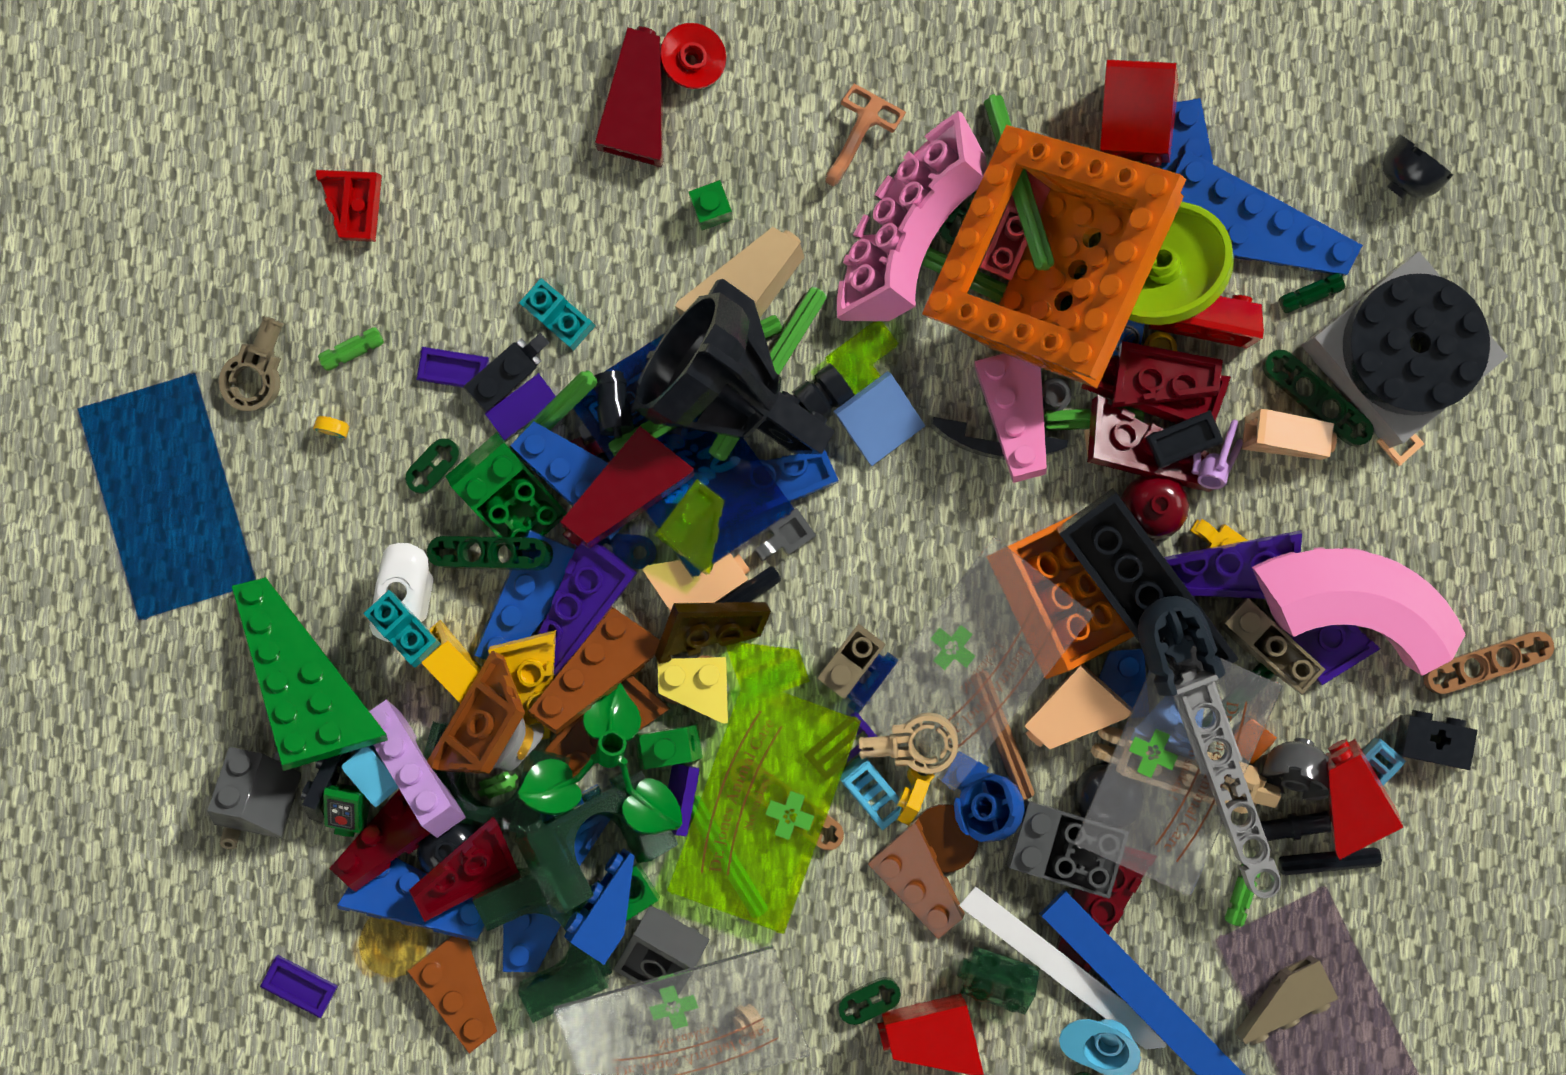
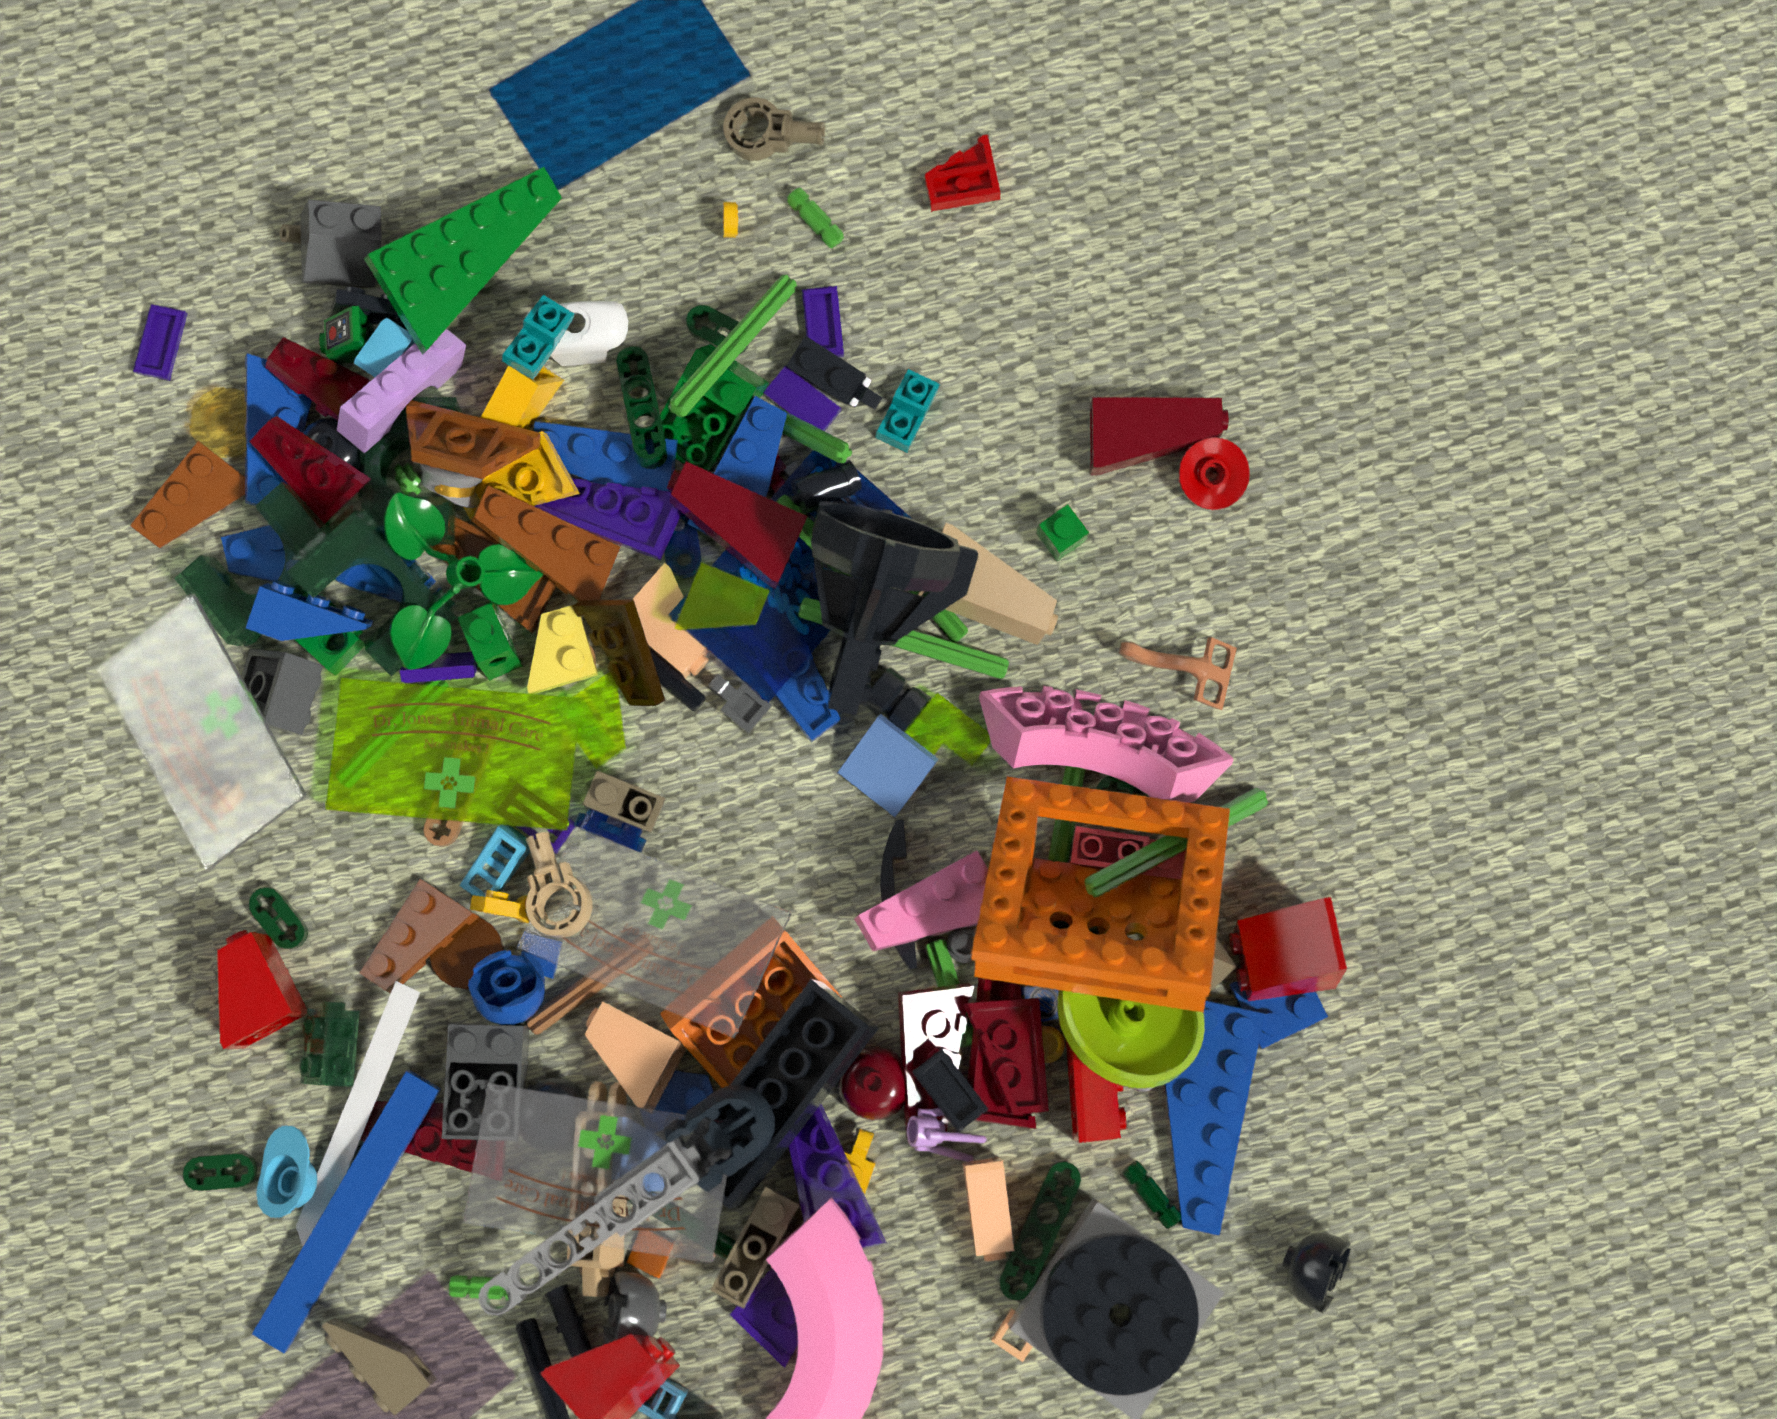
camera: 75 degrees right, 5 degrees down
(458, 453) = (732, 346): none -> bright green axle

